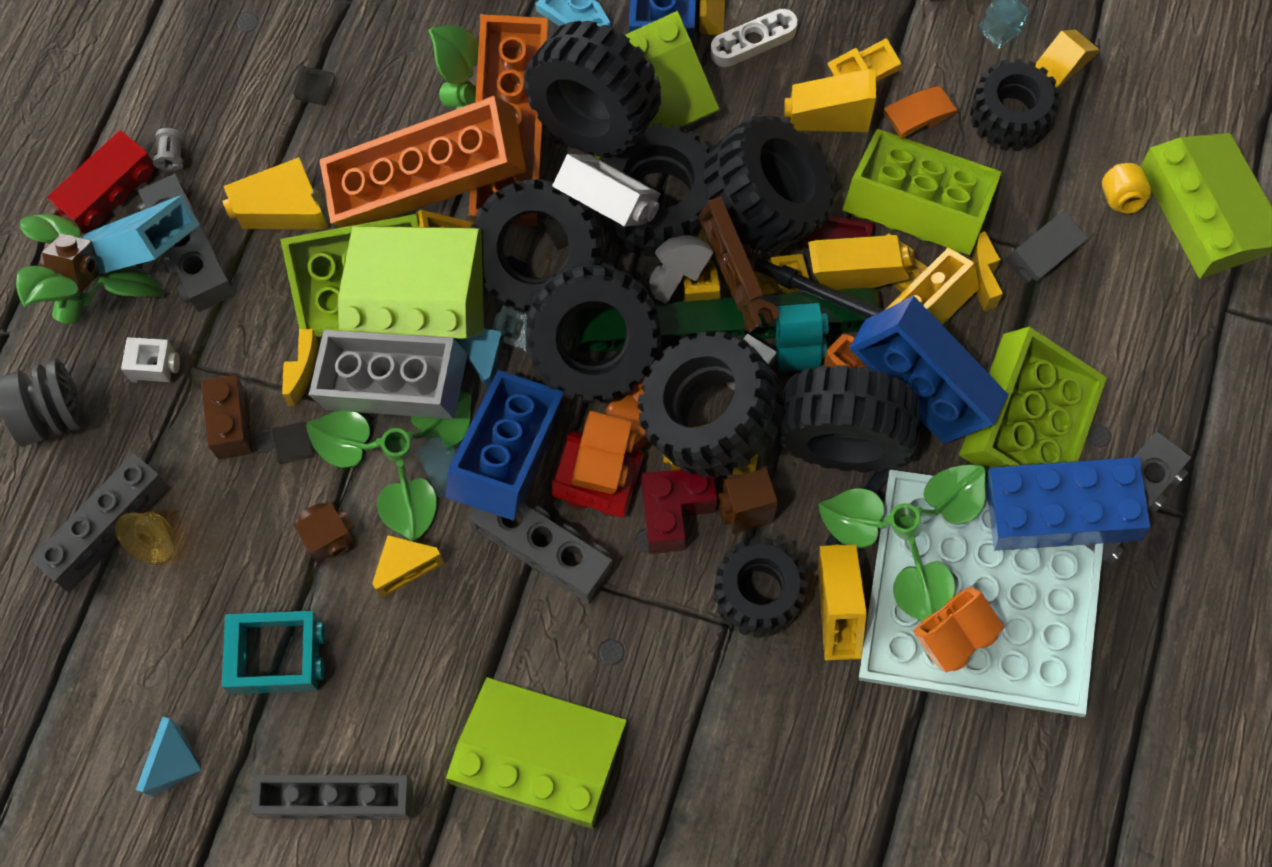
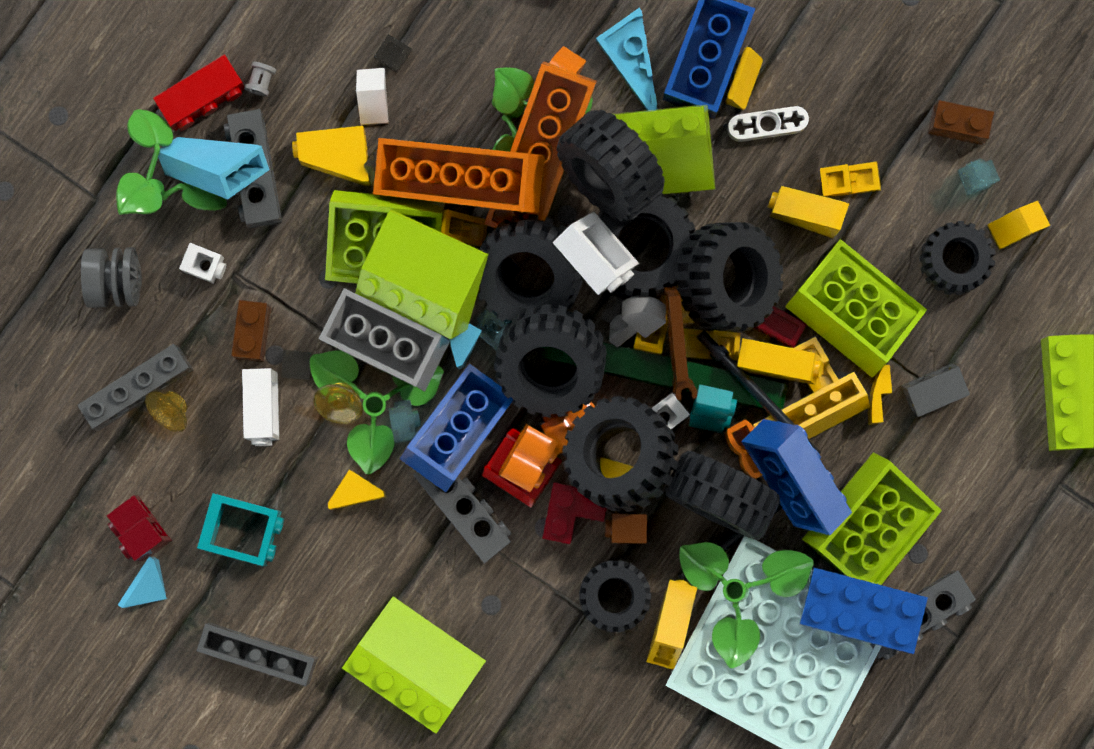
camera: 15 degrees right, 15 degrees up
(71, 258) = (160, 169): reddish brown brick -> none
(141, 691) = (138, 529): none -> dark red brick
(258, 493) = (260, 406): none -> white window
(299, 373) = (312, 312): yellow slope -> none
(303, 134) = (372, 96): none -> white slope
(325, 531) = (303, 447): reddish brown brick -> none
(353, 478) = (338, 403): none -> clear yellow piece
(919, 110) = (880, 236): orange slope -> none
(959, 629) = (747, 679): orange brick -> none
(1126, 188) = (1019, 359): yellow head -> none

